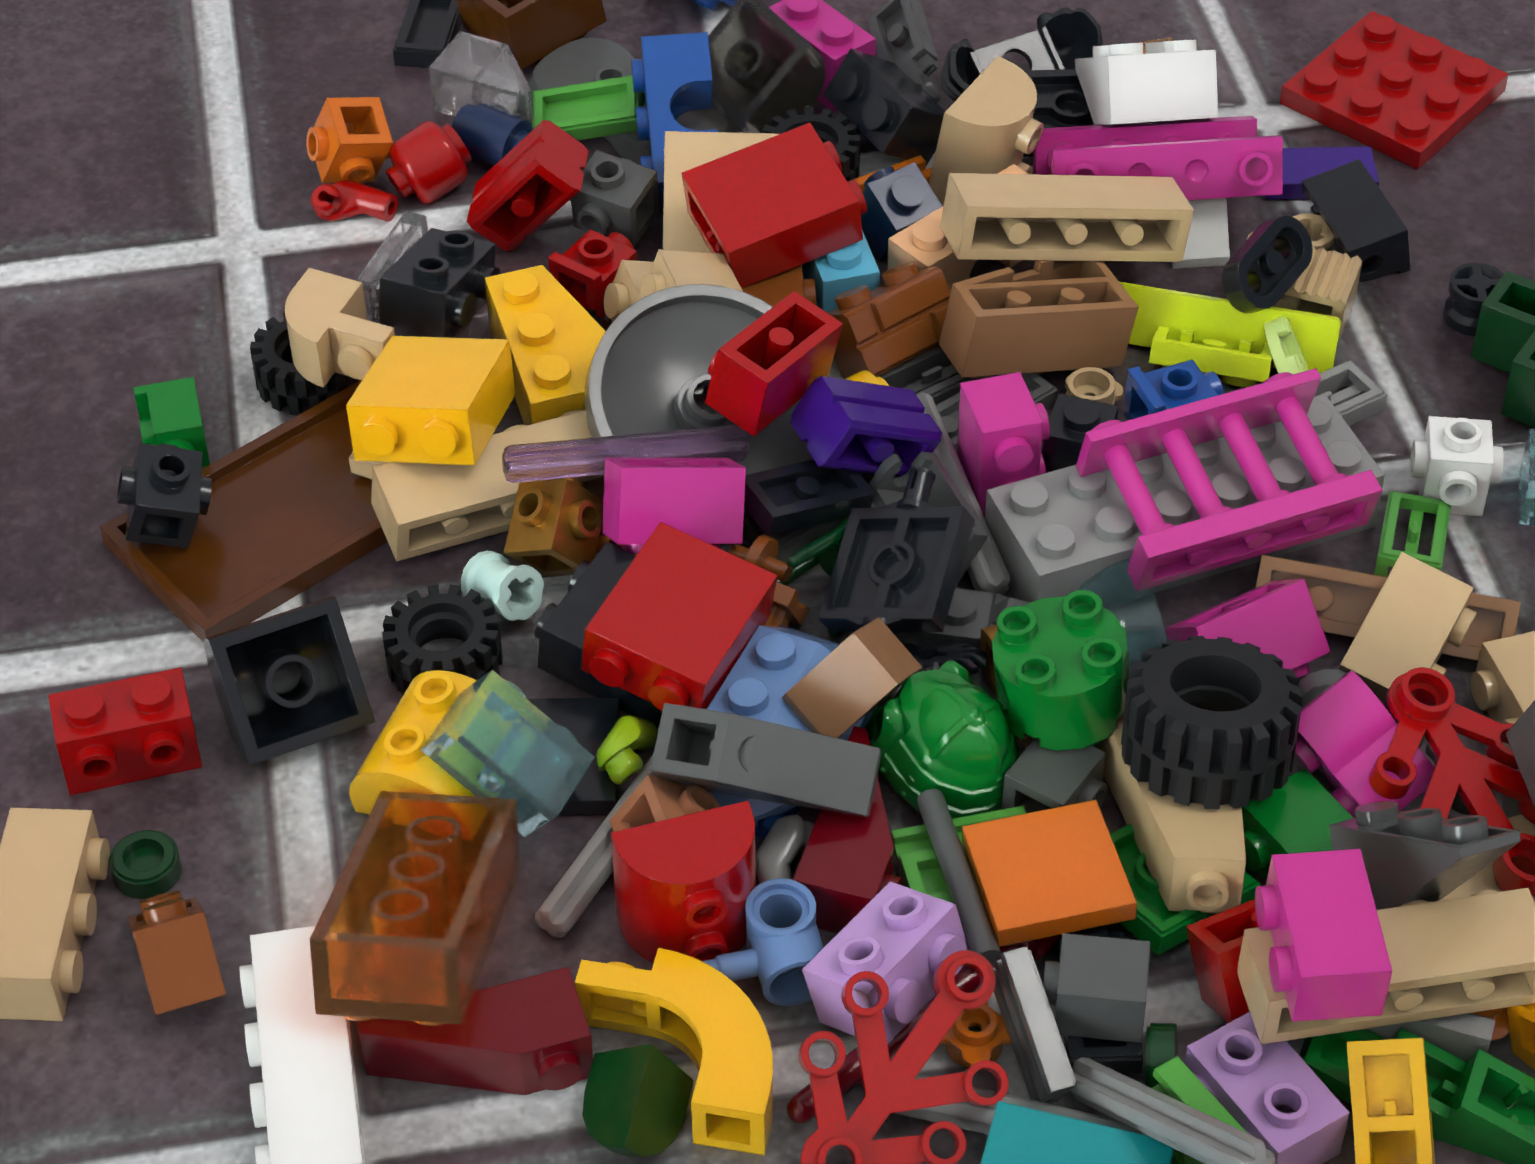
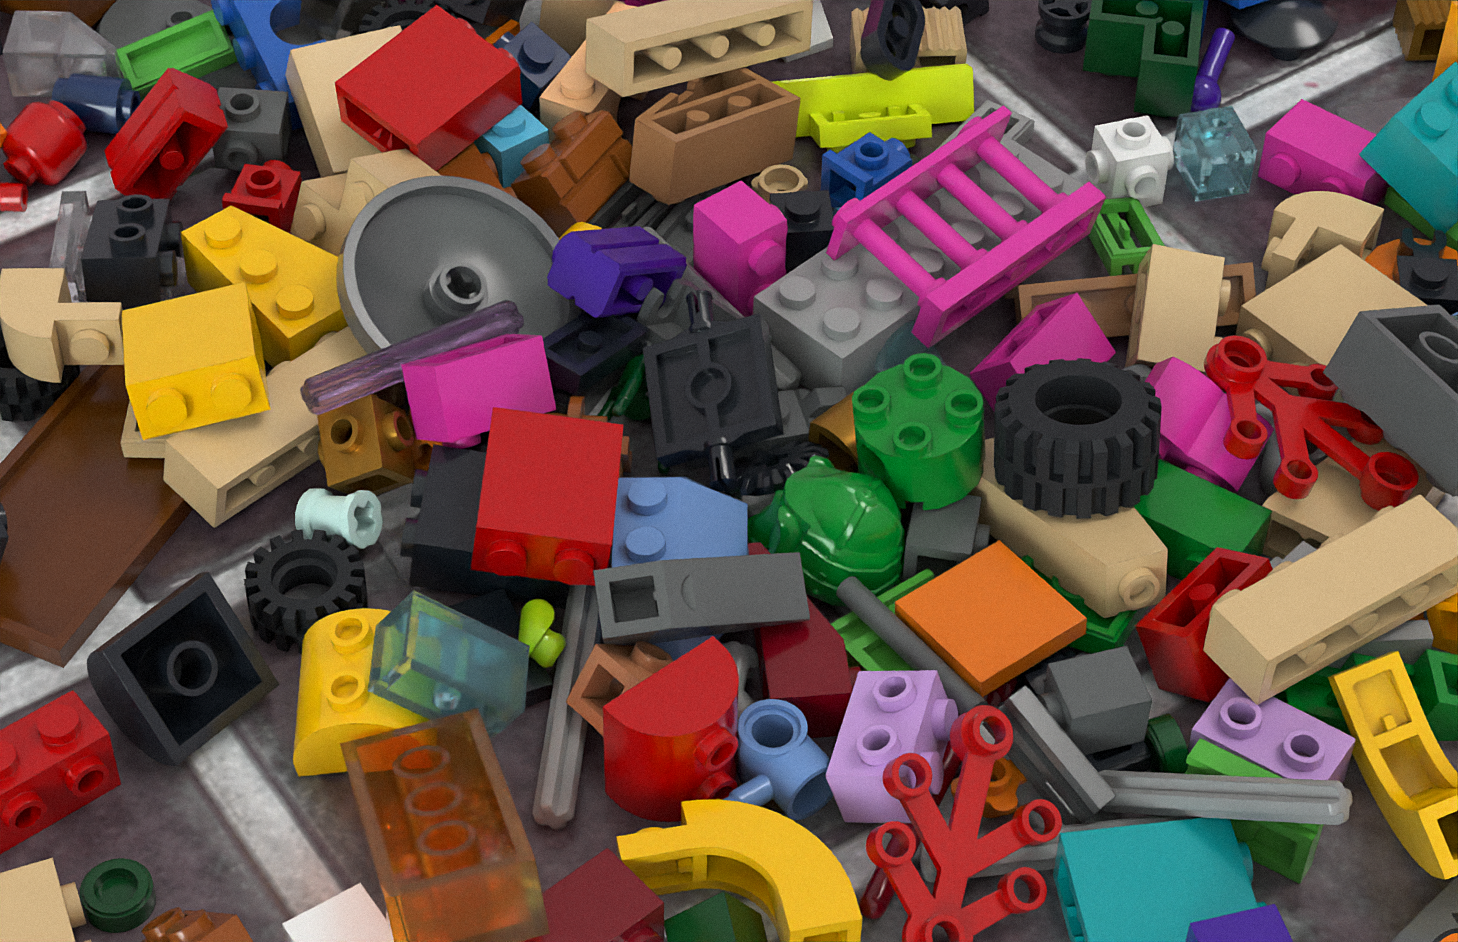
camera: 25 degrees left, 0 degrees up
(772, 363) = (518, 232): red brick -> none
(852, 680) = (733, 502): medium nougat slope -> none
(1284, 346) = (944, 117): yellowish green tile -> none
(1324, 935) = (1295, 586): dark pink brick -> none
(1419, 851) = (1299, 504): dark grey slope -> none

